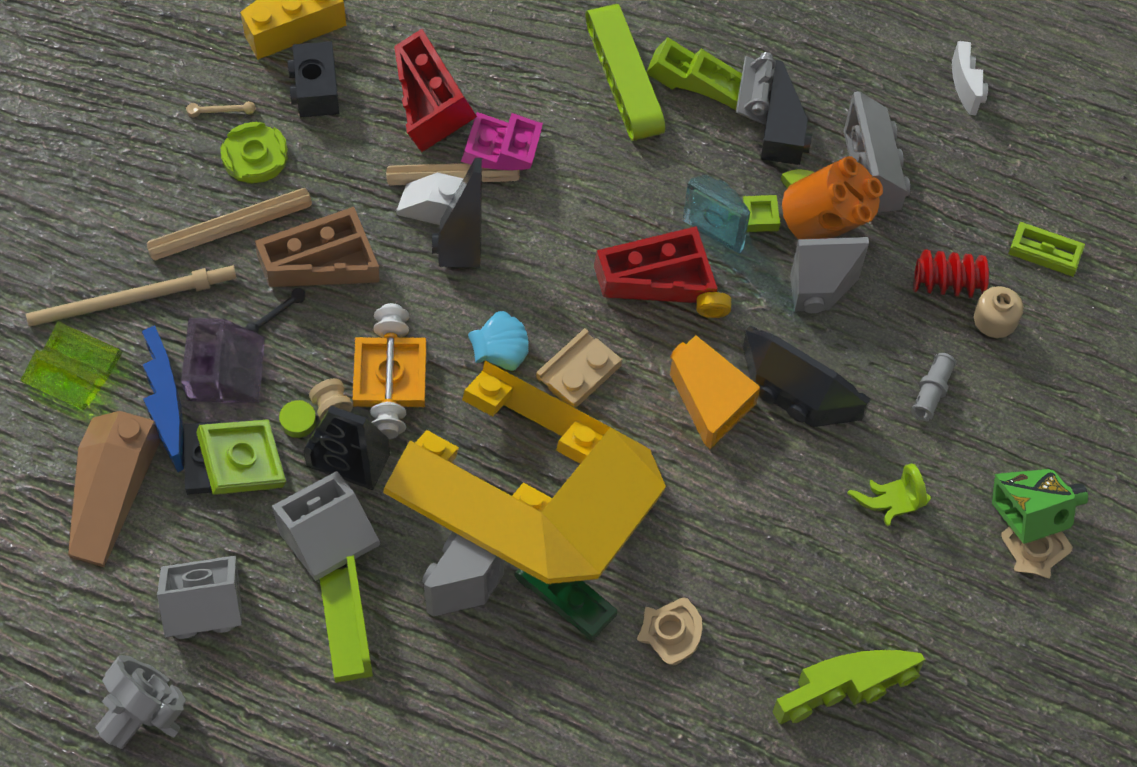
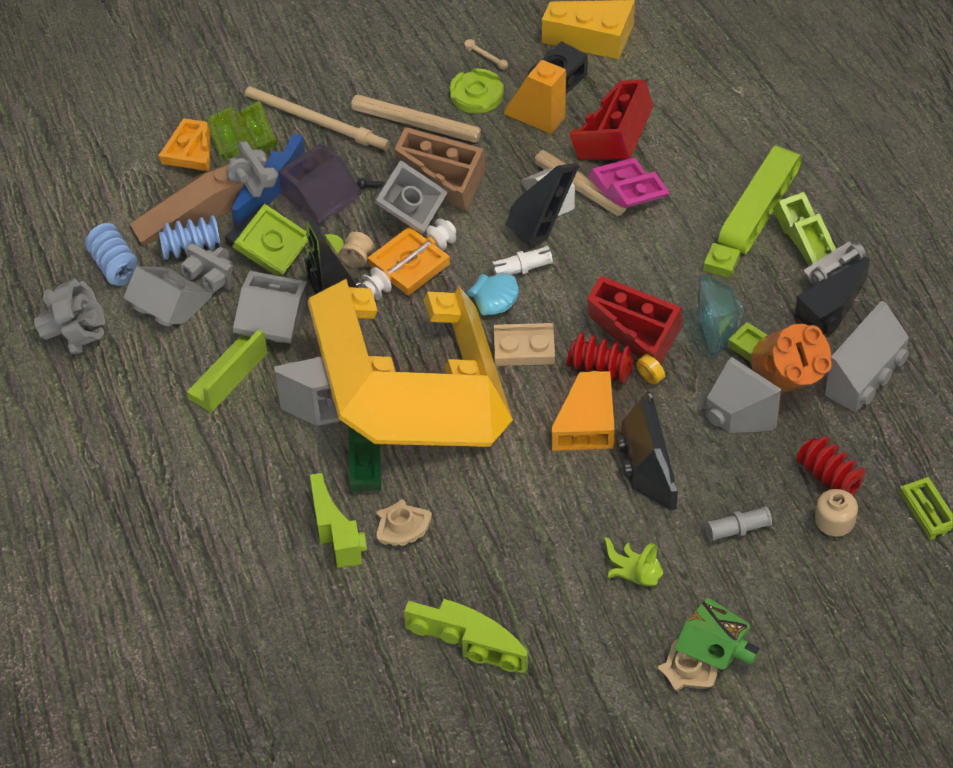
camera: 50 degrees right, 10 degrees down
(39, 424) = (188, 146): none -> light orange wing
(96, 604) = (111, 254): none -> light blue piece
(154, 402) = (250, 170): none -> light grey hips
(155, 516) = (182, 237): none -> light blue piece
(210, 530) = (211, 265): none -> light grey hips
(325, 308) = (410, 197): none -> light grey slope
(334, 116) = (541, 98): none -> light orange slope
(492, 291) = (523, 262): none -> white pin
(646, 690) = (336, 527): none -> lime slope
(652, 154) = (721, 260): none -> lime plate
(664, 325) = (600, 358): none -> red piece

